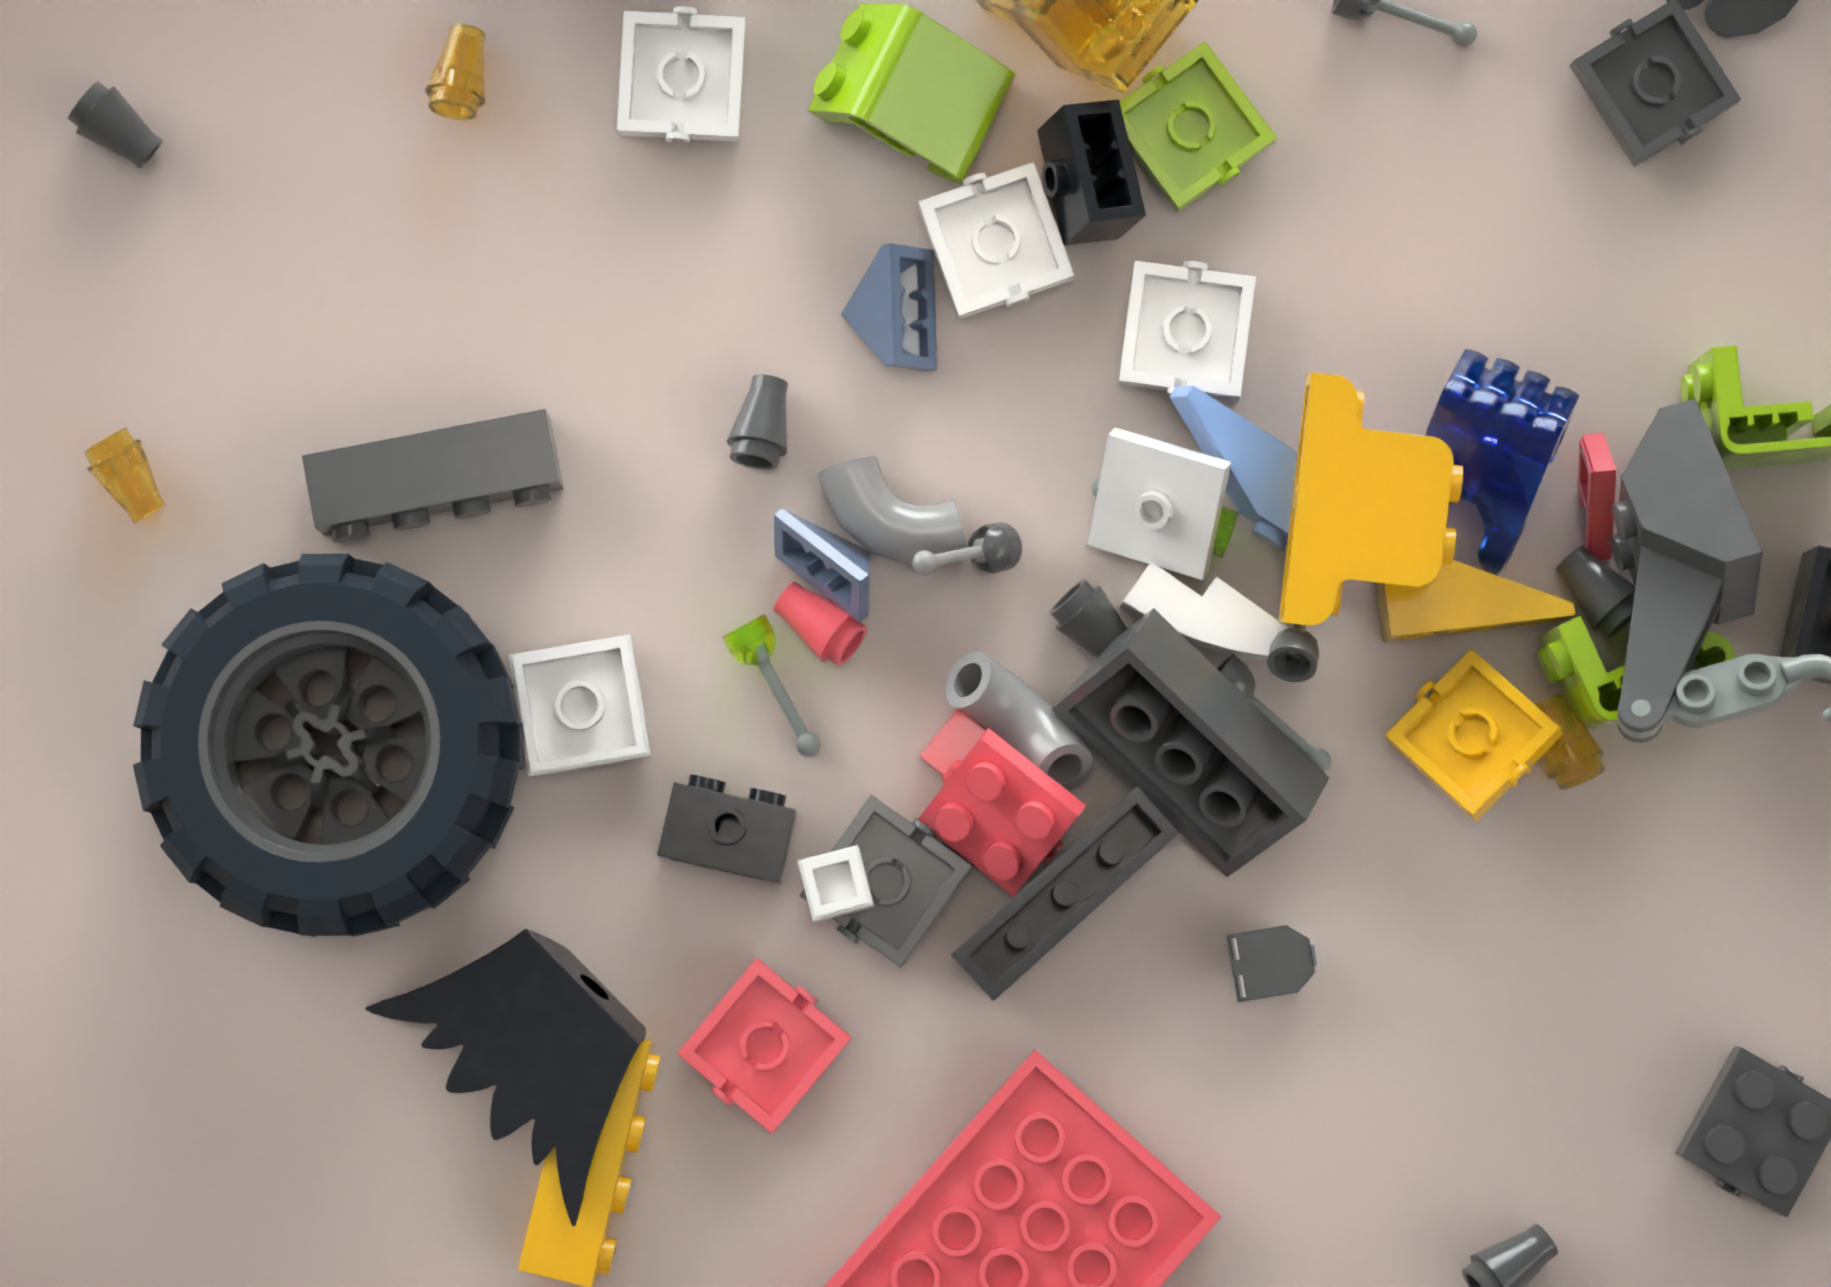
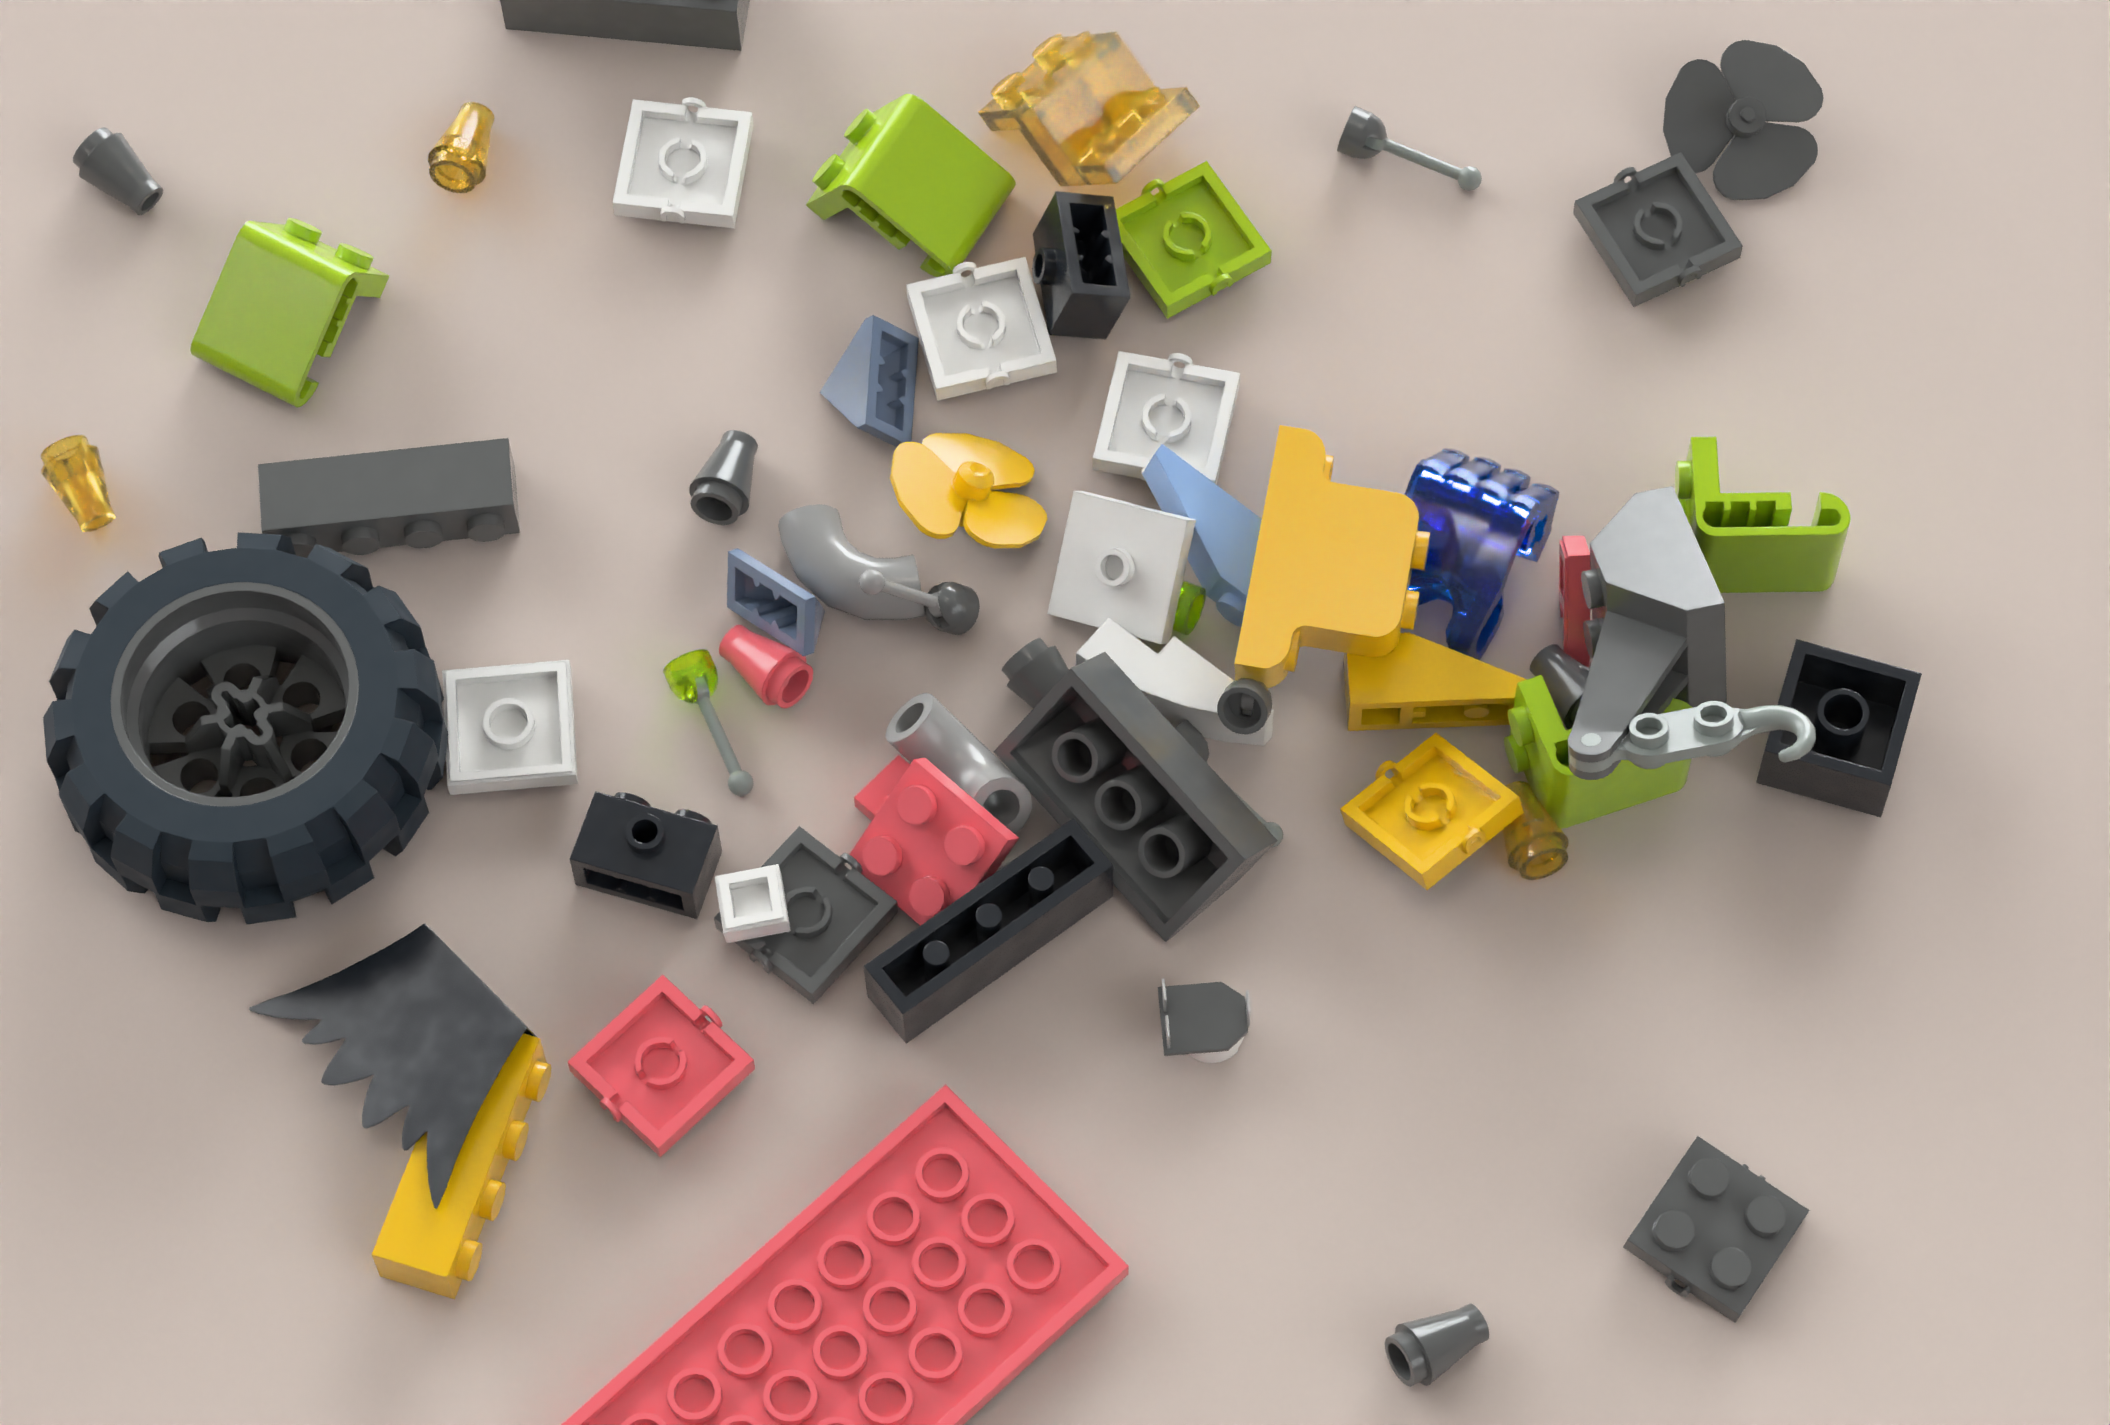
camera: 10 degrees right, 20 degrees down
(304, 267) = (282, 305): none -> lime piece
(985, 417) = (951, 485): none -> yellow piece

